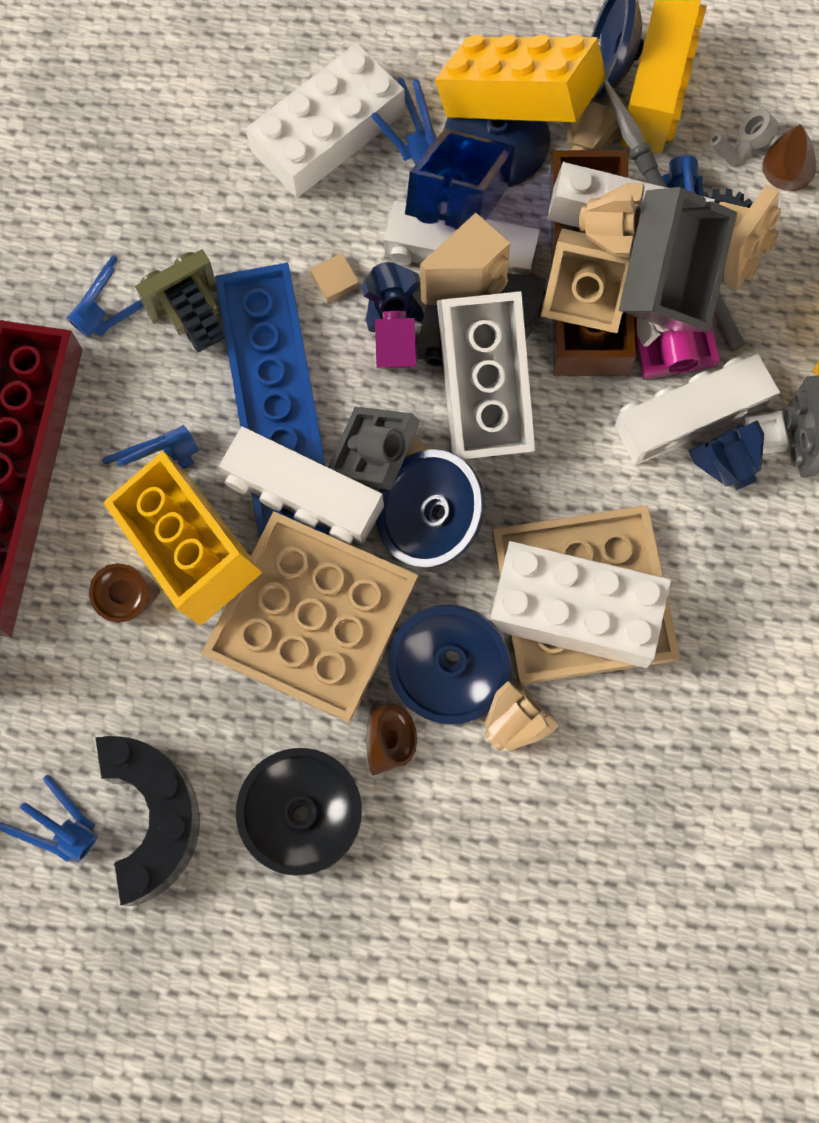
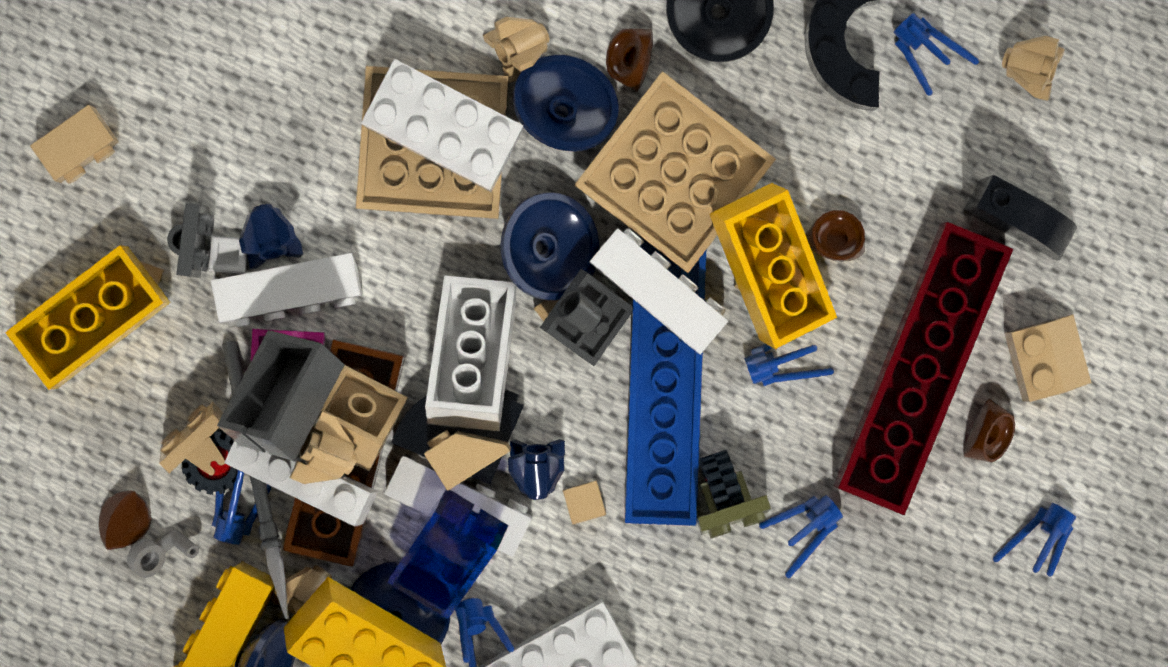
camera: 170 degrees left, 15 degrees up
(395, 340) = (544, 408): magenta brick -> none

